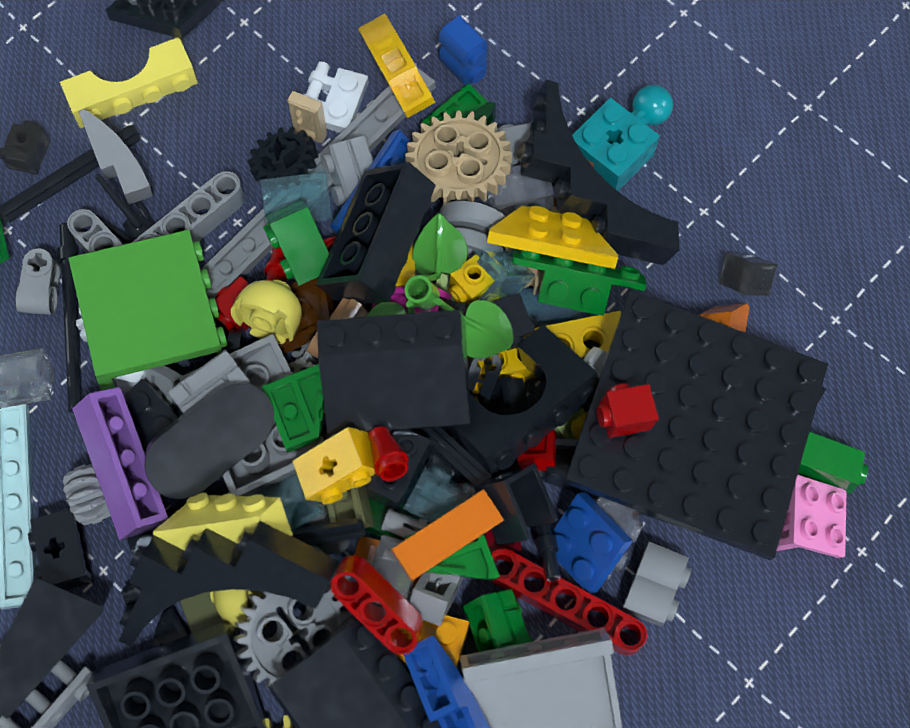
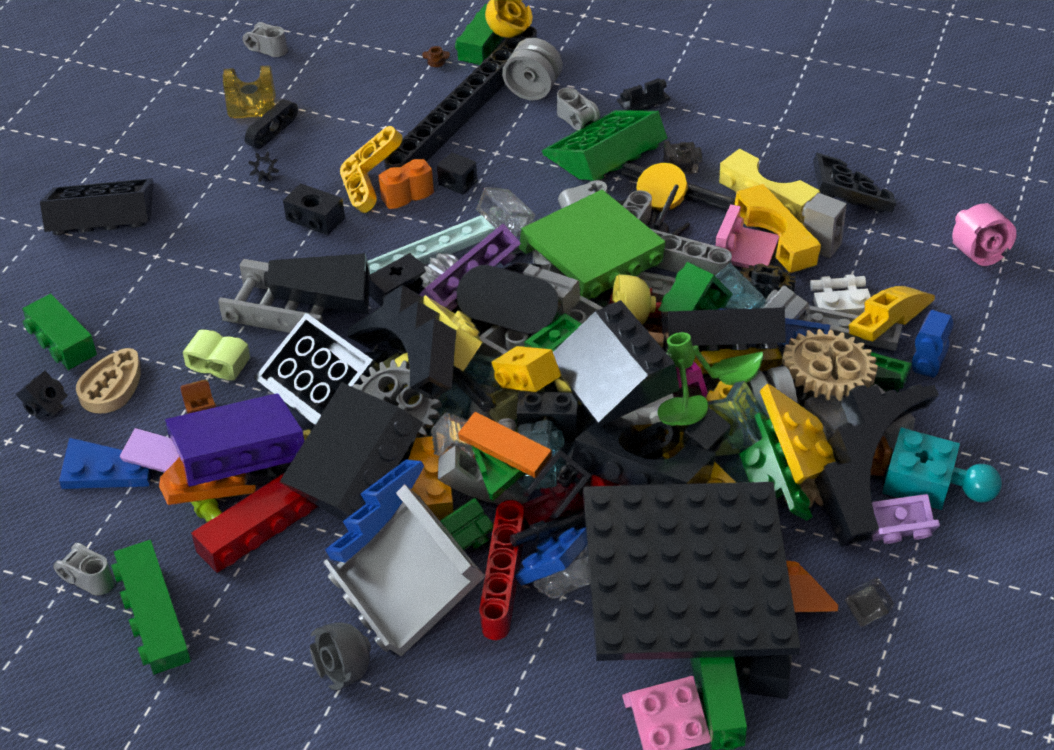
camera: 70 degrees right, 25 degrees down
(64, 188) = (659, 182): none -> yellow tile
(116, 159) = (699, 196): light grey slope -> none
(172, 107) = (796, 245): none -> yellow arch
(207, 147) = (745, 244): none -> bright pink bracket
(235, 61) = (825, 222): none -> light grey brick
(308, 115) = (807, 275): tan plate -> none
(381, 621) = (430, 421): red beam -> none
(387, 455) = (544, 384): red cone -> none
(627, 410) = (657, 496): red brick -> none
(656, 584) = (548, 623): light grey brick -> none
(666, 190) = (904, 518): none -> lavender bracket

